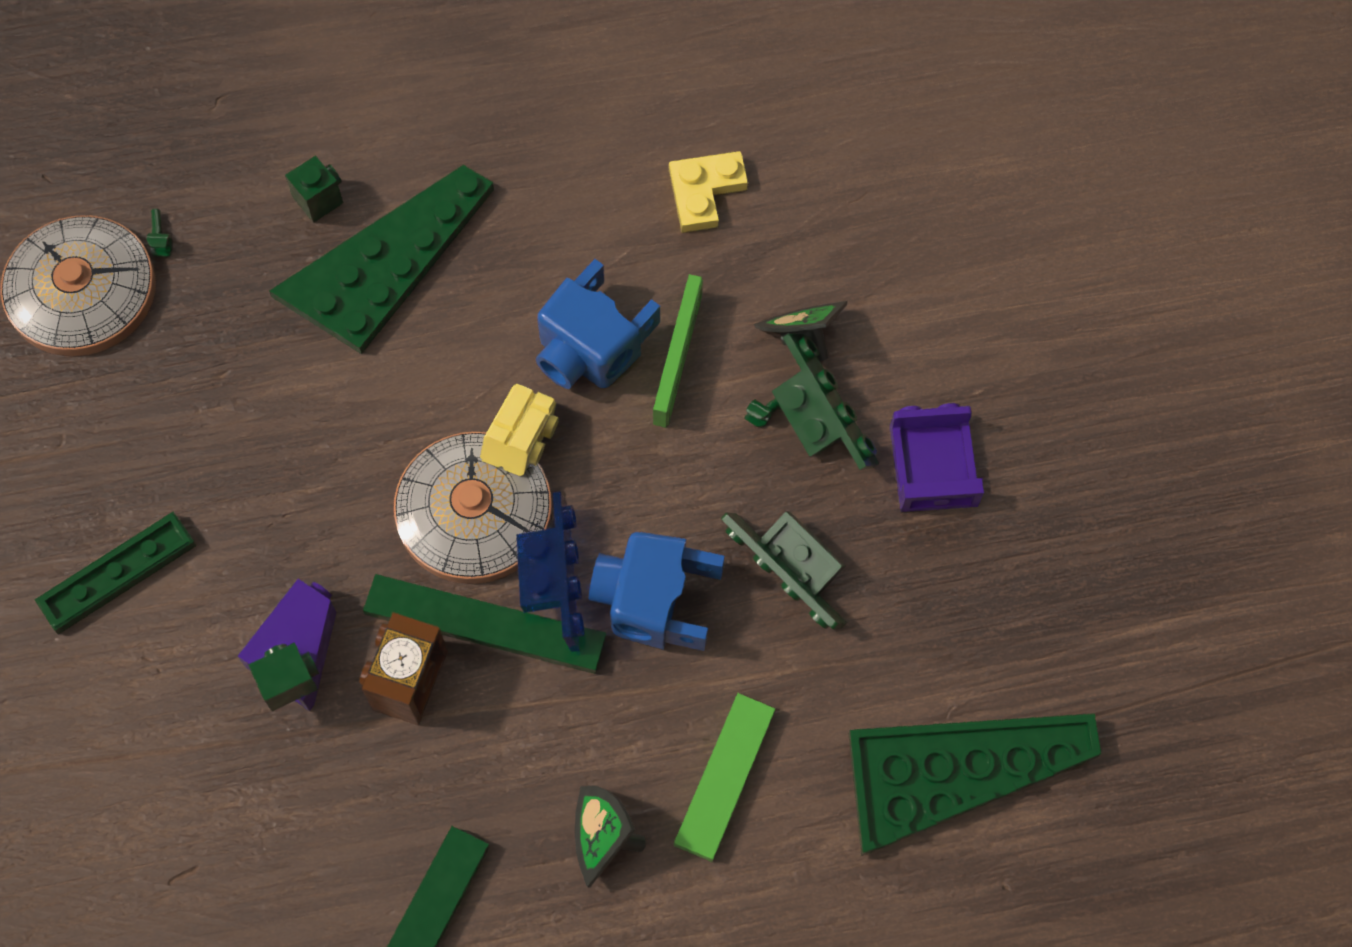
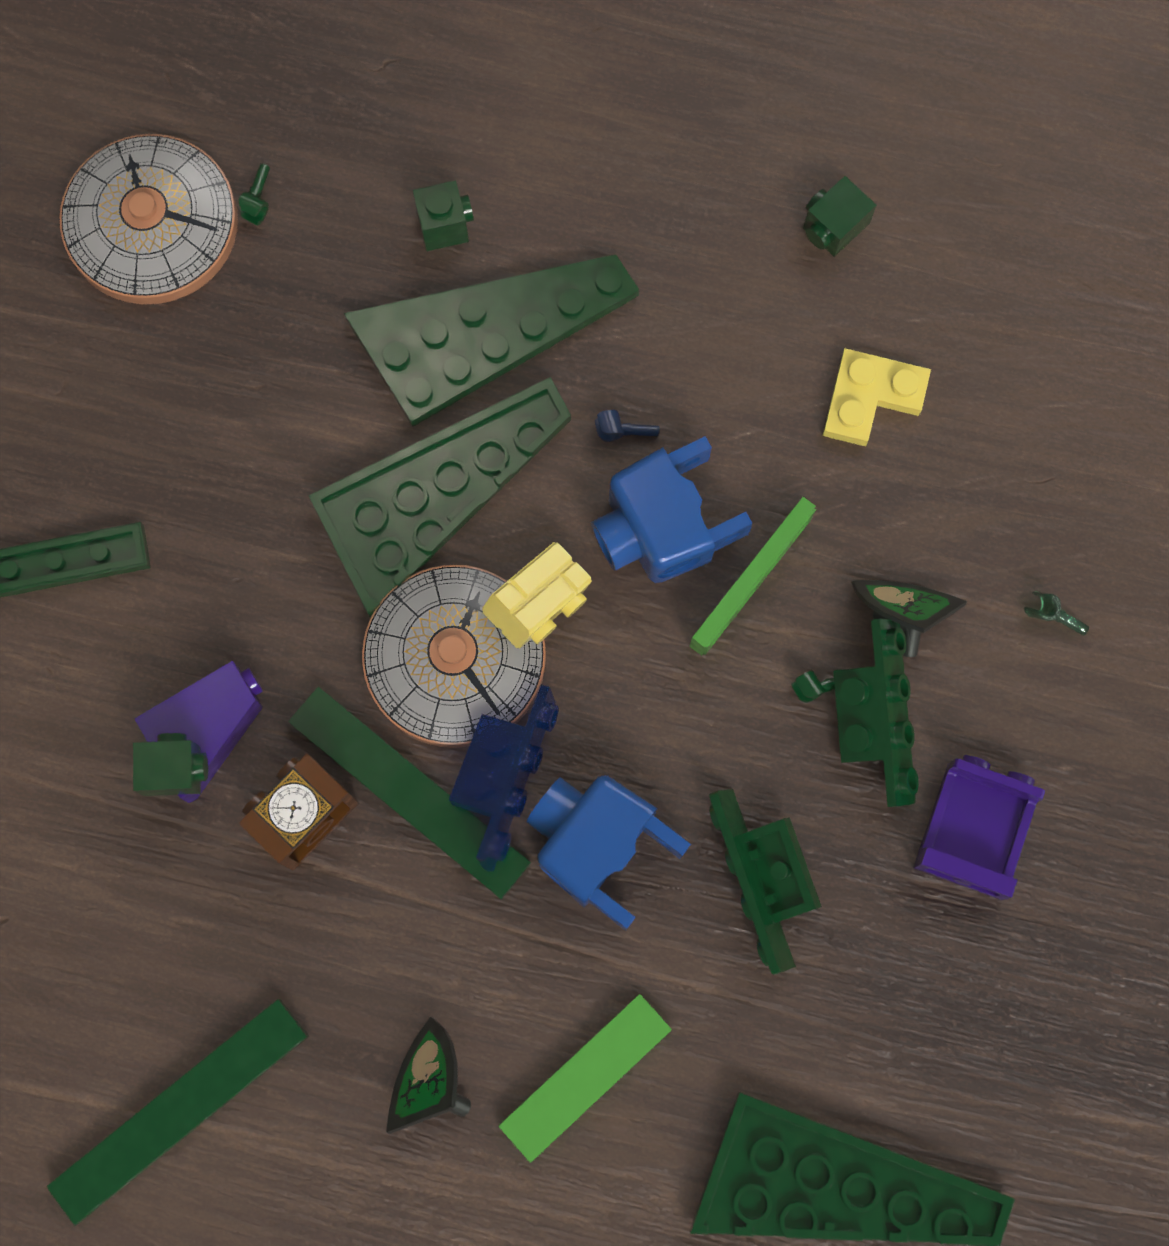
camera: 25 degrees right, 10 degrees up
(389, 404) = (417, 499): none -> dark green wing
(518, 291) = (610, 427): none -> dark blue hand
(619, 71) = (837, 216): none -> dark green brick
(912, 282) = (1052, 610): none -> clear green hand

